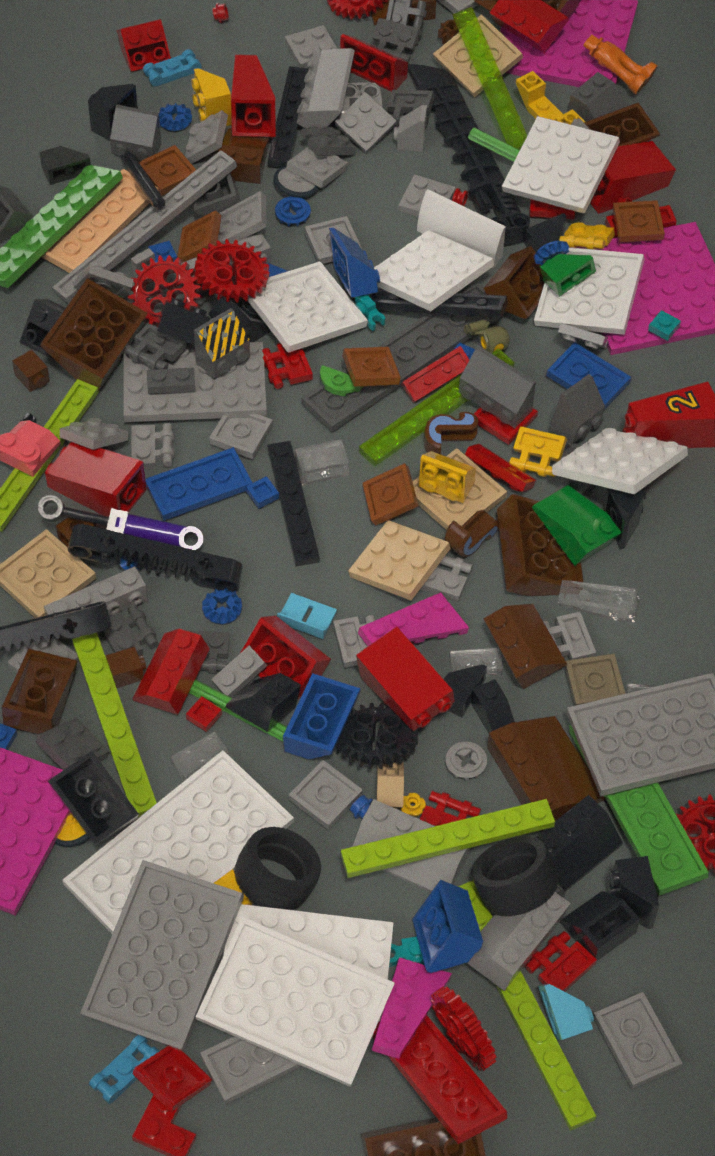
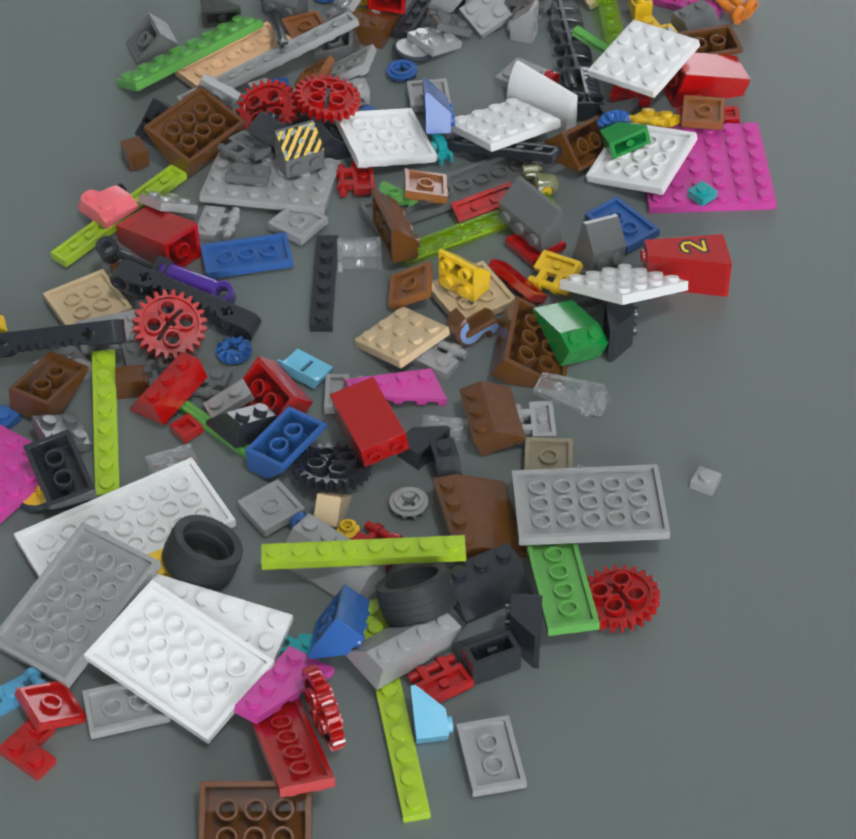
camera: 15 degrees right, 10 degrees down
(131, 584) = (152, 314): none -> red gear
(262, 492) = (299, 270): blue plate -> none
(354, 427) = (393, 227): none -> reddish brown slope
(448, 428) = (481, 245): reddish brown animal -> none
(589, 338) = (626, 191): light grey plate -> none

